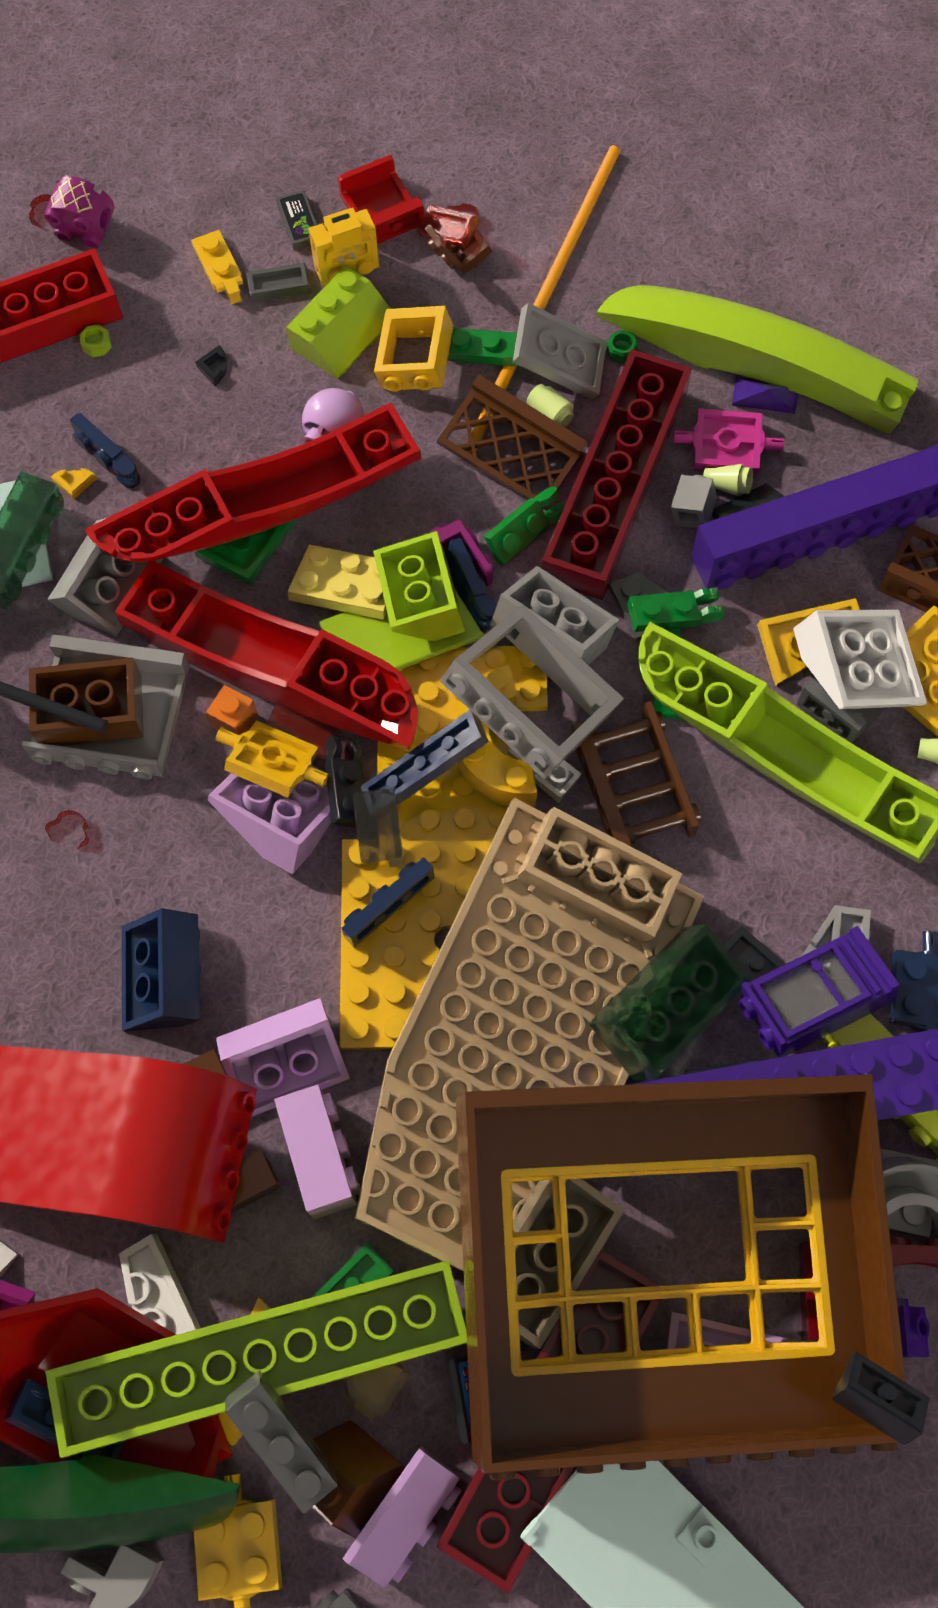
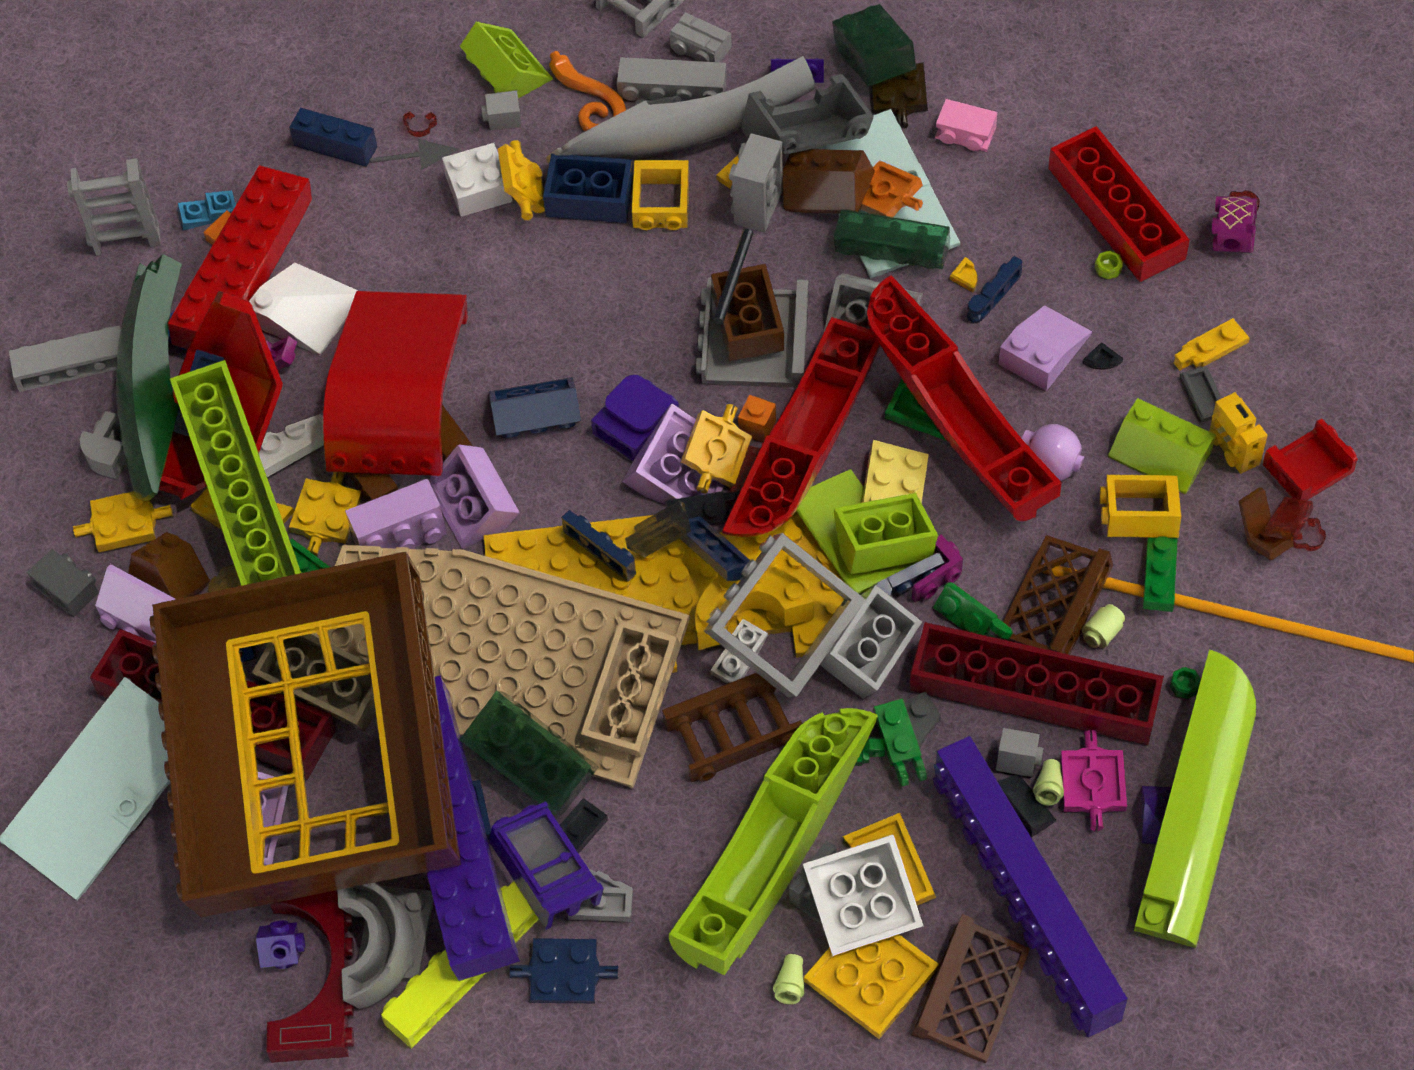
camera: 85 degrees right, 10 degrees down
(58, 820) = (650, 337): clear red piece -> none
(191, 415) = (1042, 347): none -> lavender slope
(204, 850) = (631, 414): none -> dark purple brick
(272, 1254) = (322, 513): none -> yellow plate
(281, 1442) = (181, 506): dark grey brick -> none
(296, 218) = (1277, 400): tile -> none
(559, 351) = (1156, 622): light grey plate -> none
(881, 1399) = (211, 873): black slope -> none

